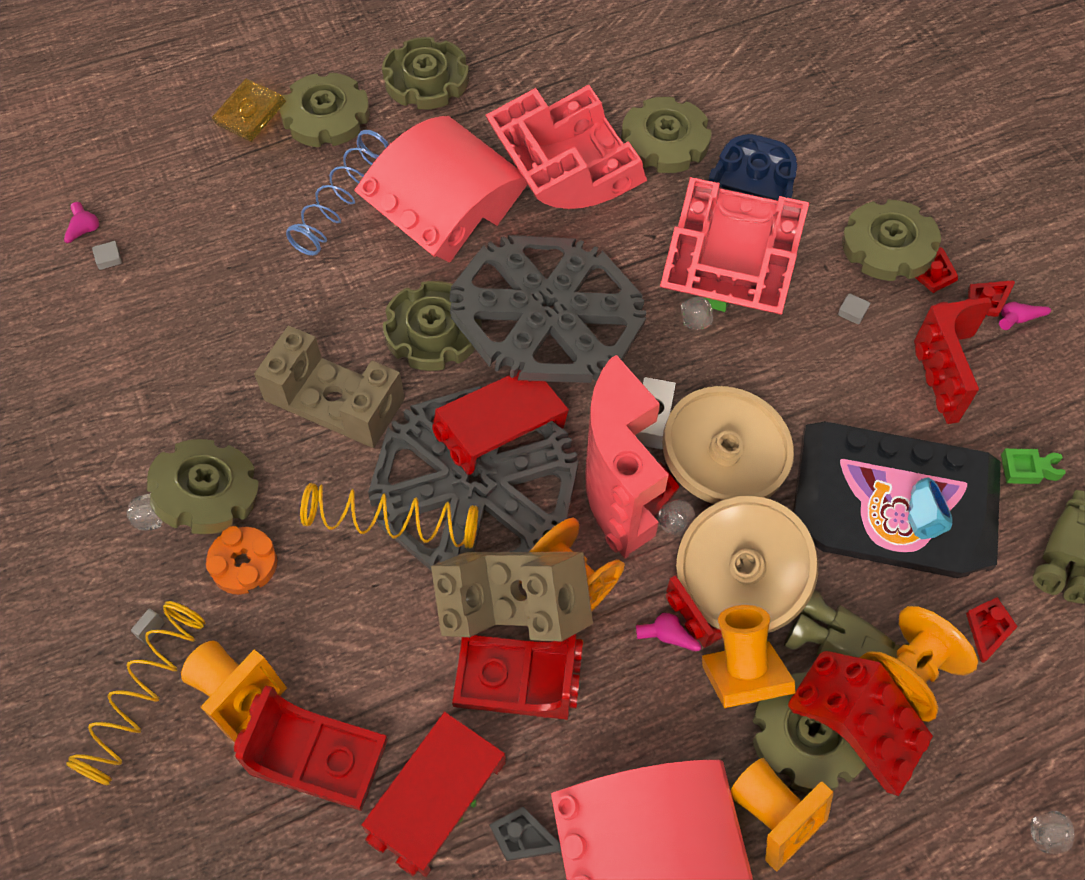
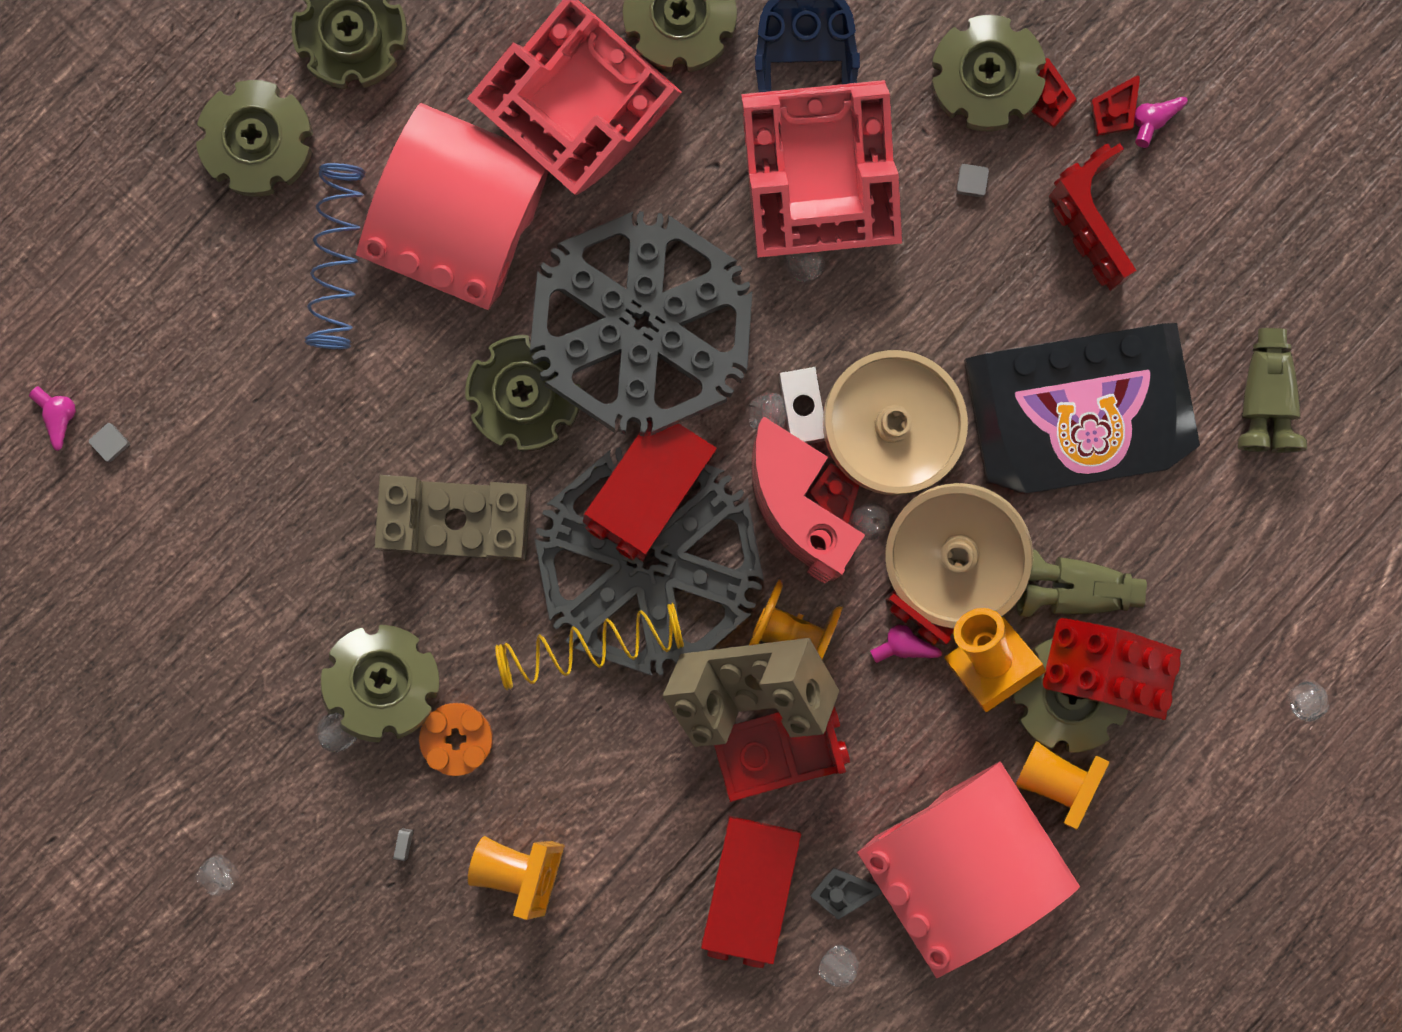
camera: 25 degrees left, 25 degrees up
(168, 608) = (432, 998): yellow piece -> none
(248, 109) = (164, 177): clear yellow tile -> none
(308, 751) = (623, 899): red bracket -> none
(928, 510) = (1119, 423): medium azure rock -> none
(932, 646) = (1151, 595): light orange piece -> none
(990, 627) = (1208, 516): red piece -> none
(1026, 466) = (1204, 317): bright green plate -> none

